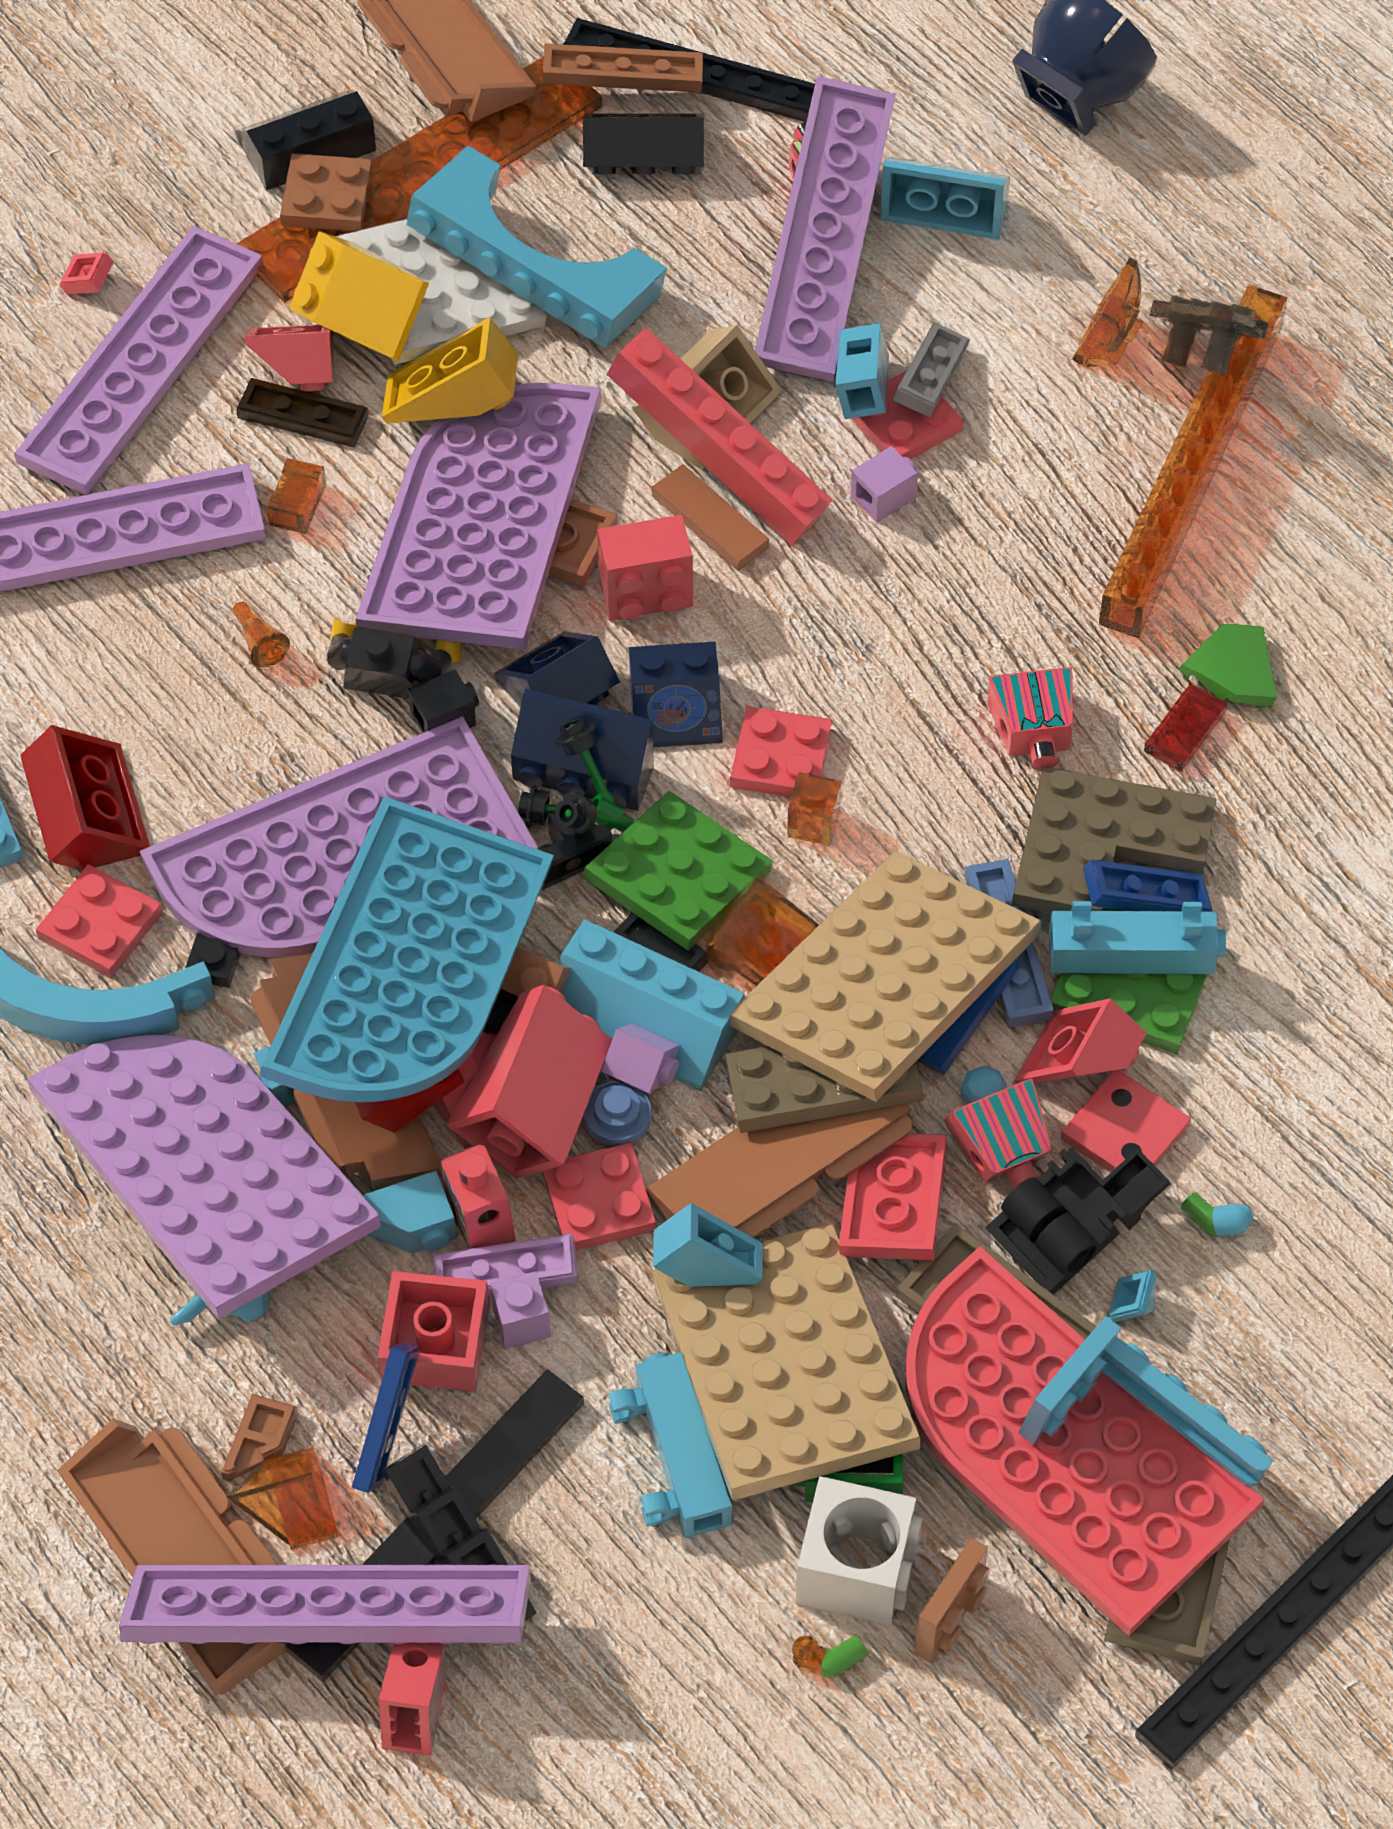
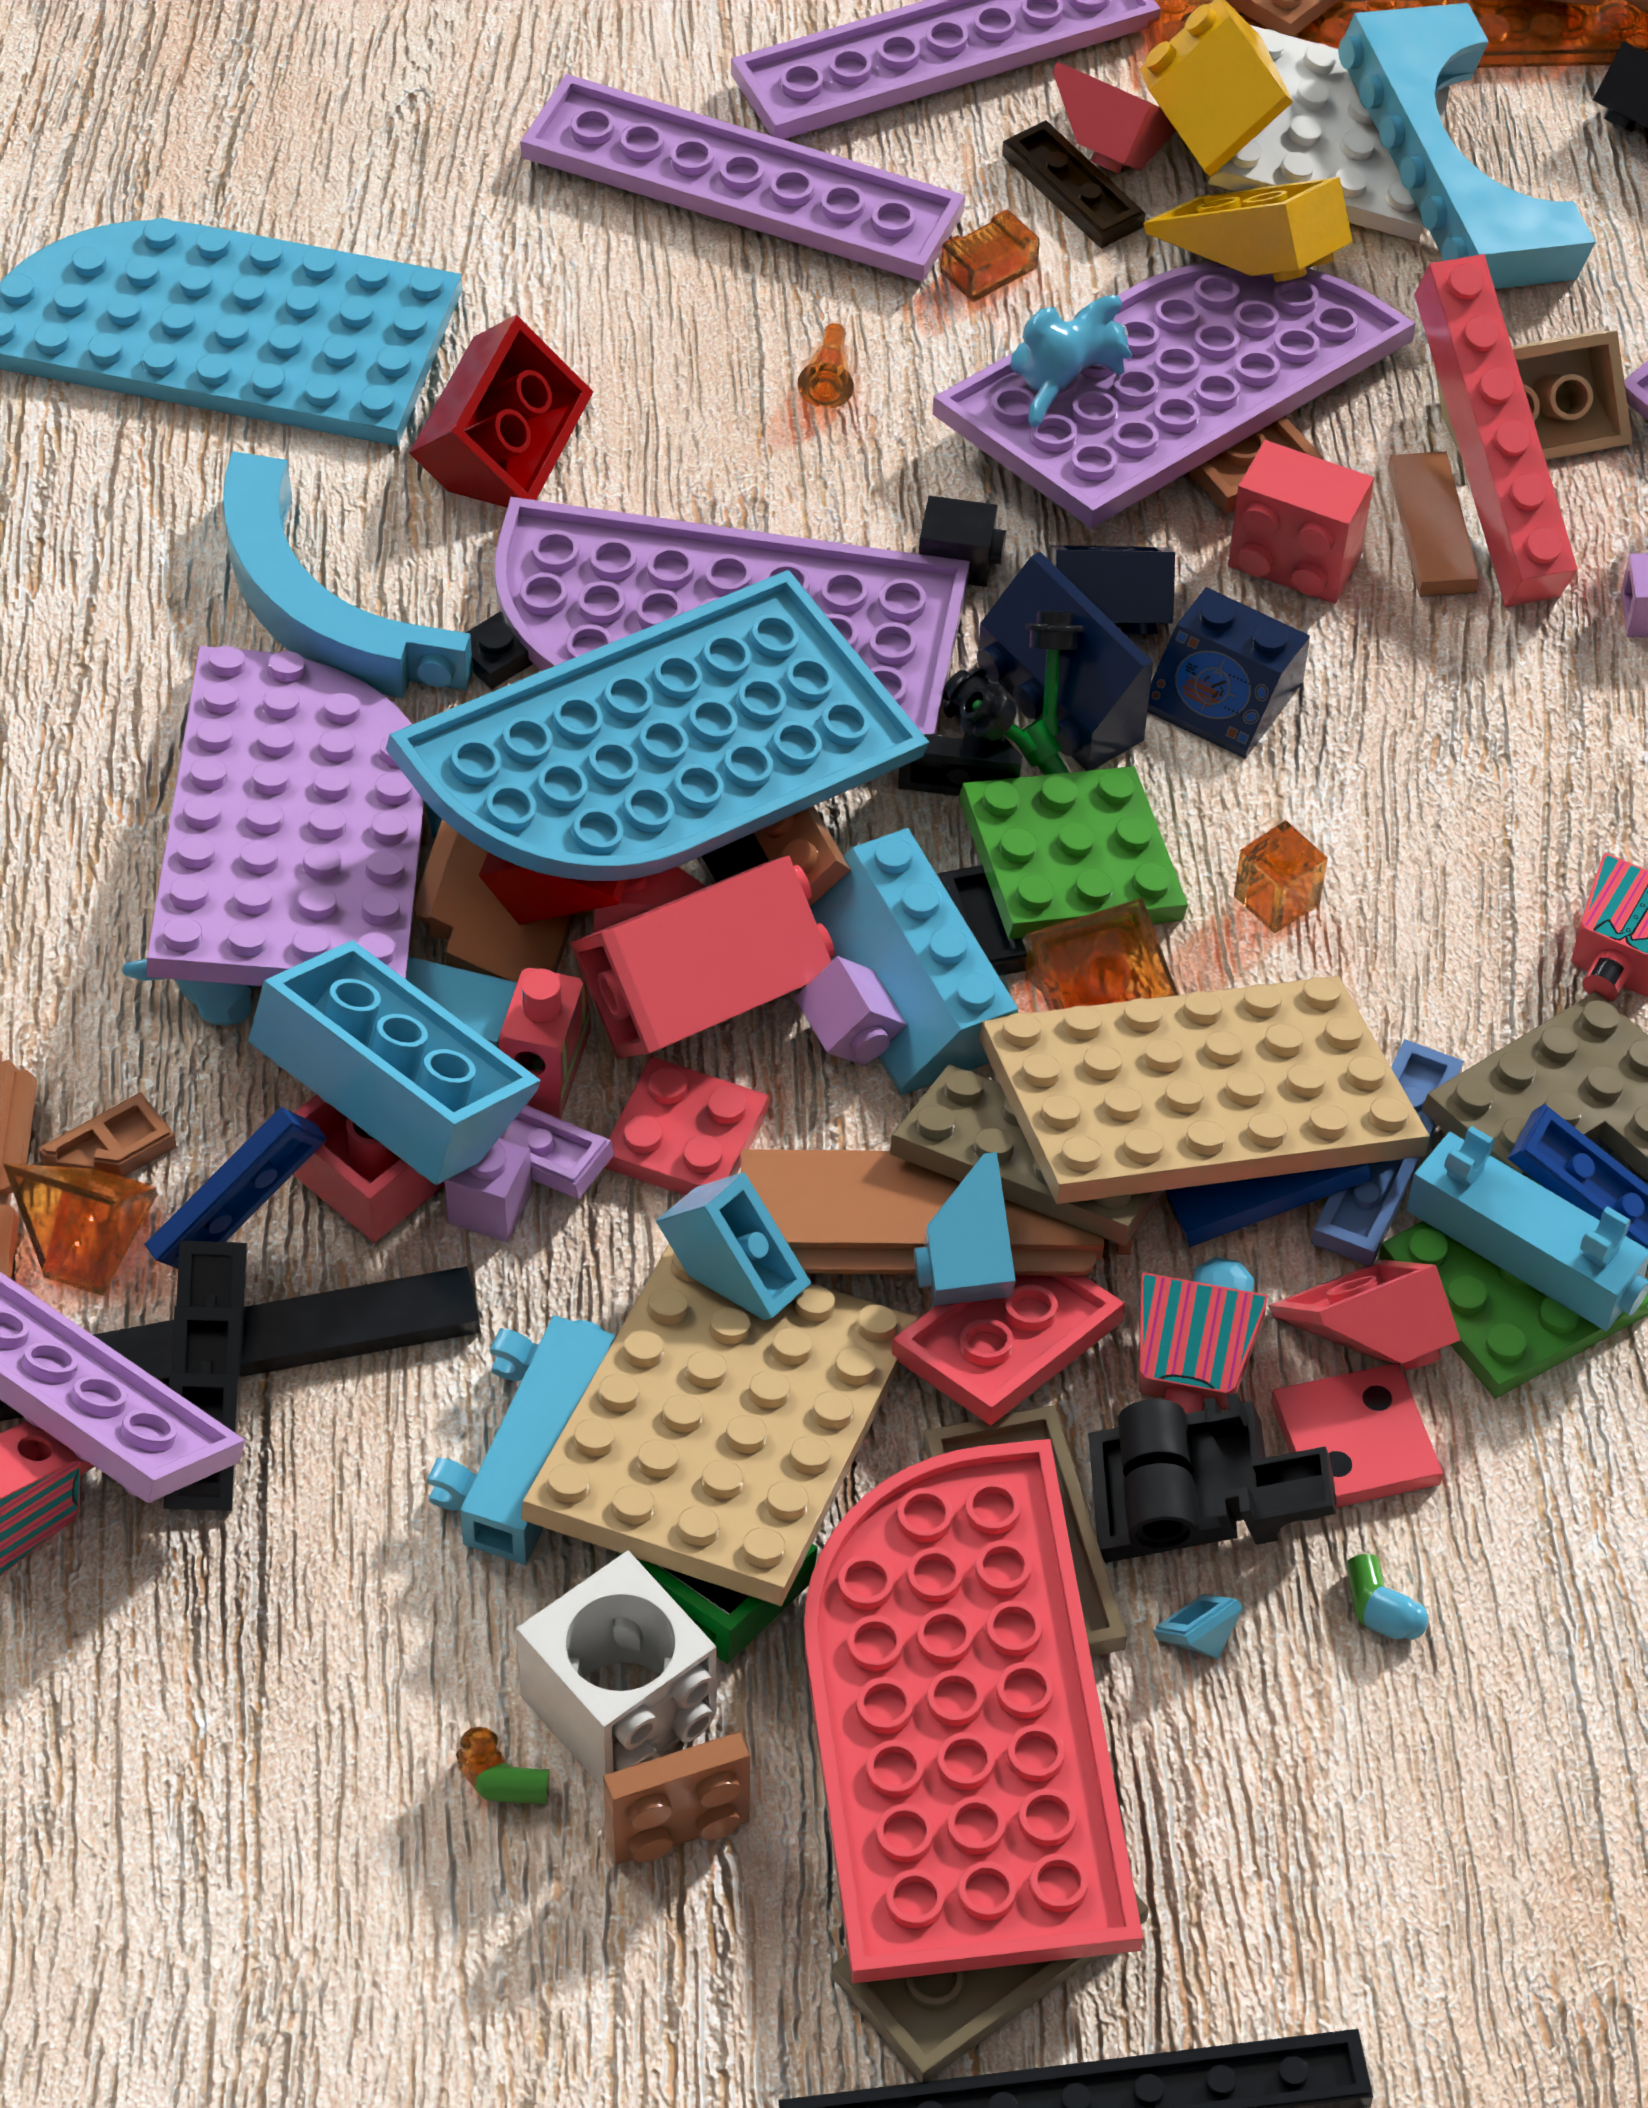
camera: 35 degrees right, 5 degrees down
(99, 921) = (415, 545): coral plate -> none
(385, 659) = (934, 457): black torso -> none
(416, 540) = (1060, 350): none -> medium azure animal
(423, 1272) = (391, 1060): none -> medium azure slope
(617, 1114) = (779, 1056): medium blue plate -> none
(776, 748) = (1307, 790): coral plate -> none
(842, 1155) = (969, 1242): none -> medium azure slope
(1155, 1390) = (1022, 1639): medium azure bracket -> none

